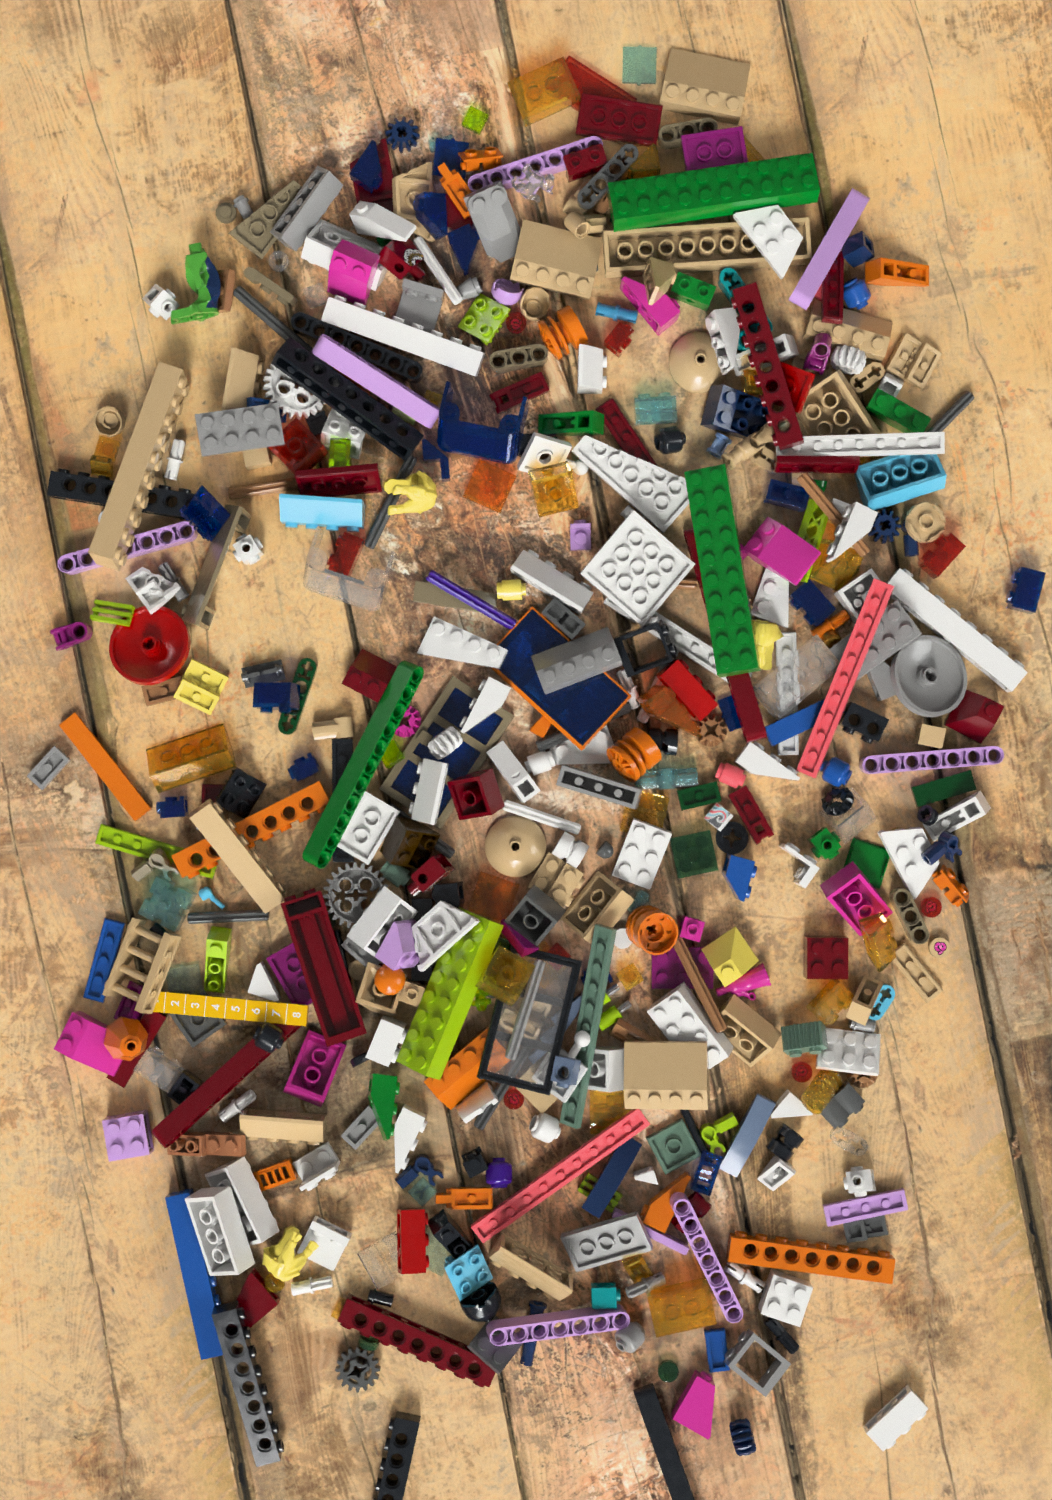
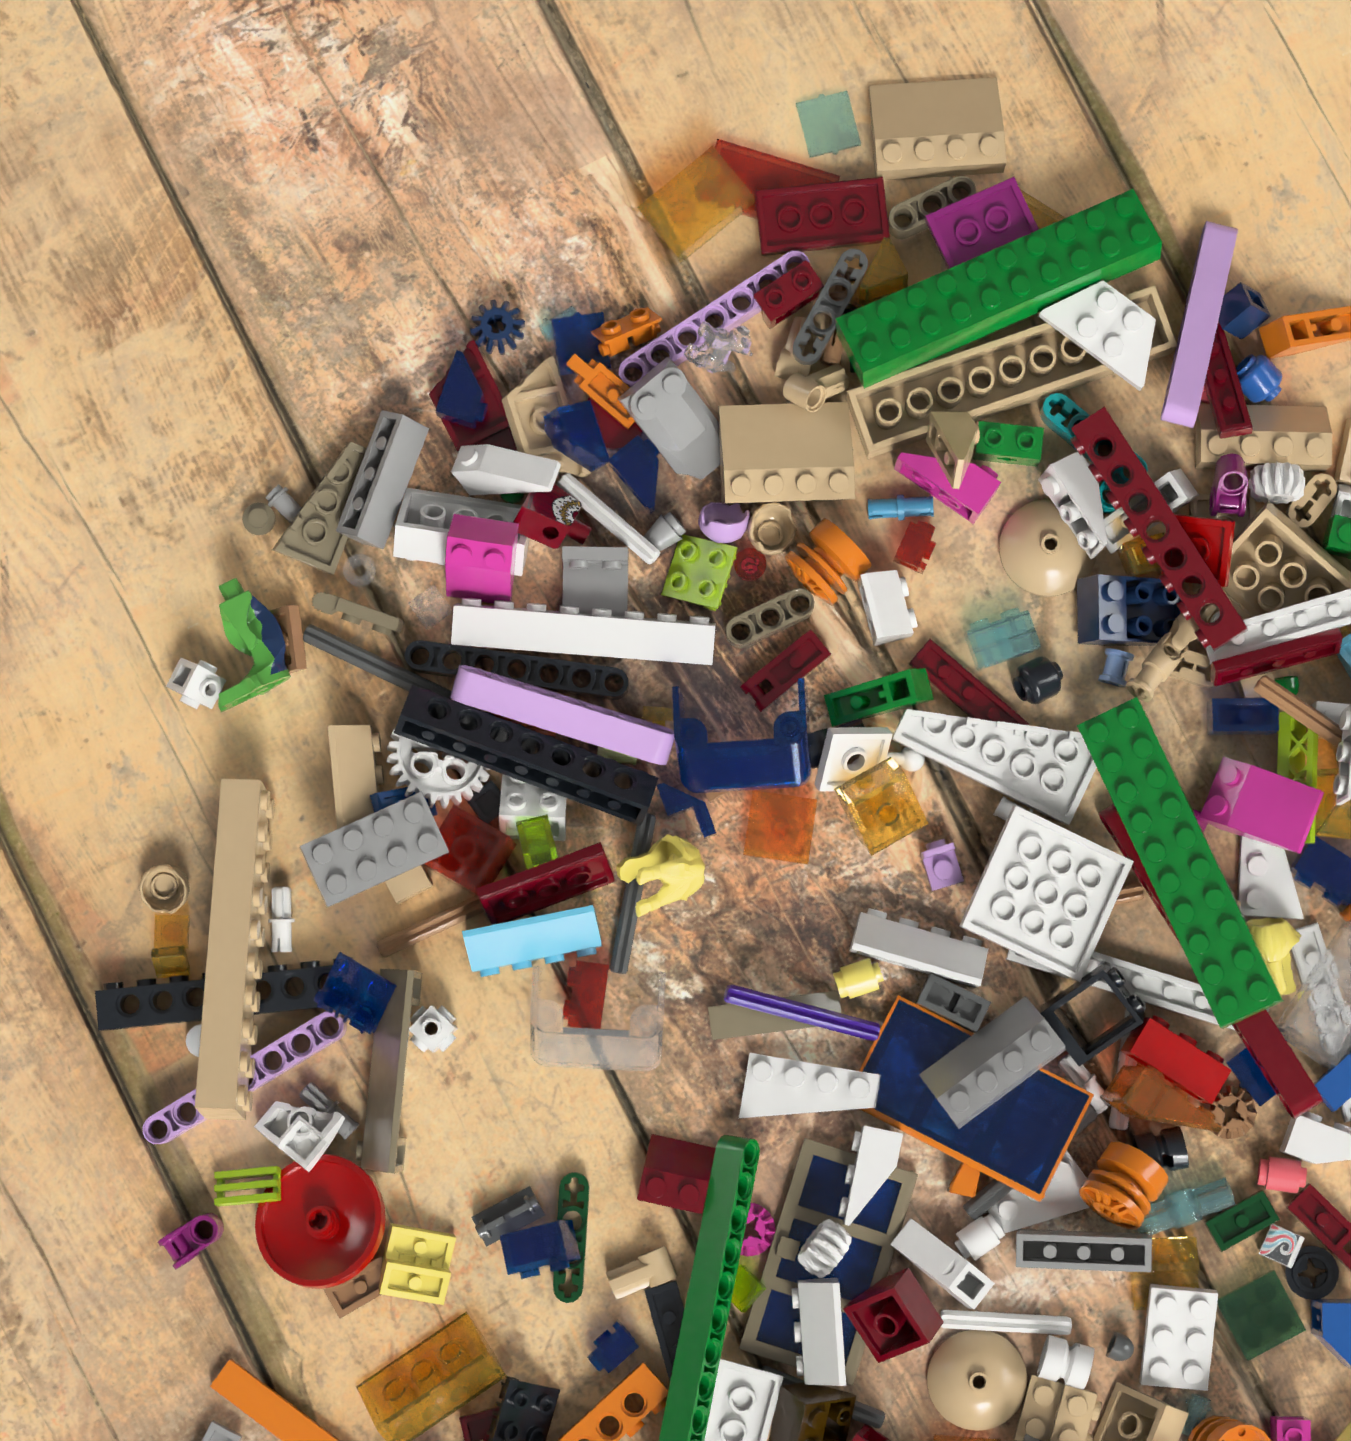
camera: 10 degrees left, 5 degrees down
(475, 120) = (601, 274): clear neon green tile -> none

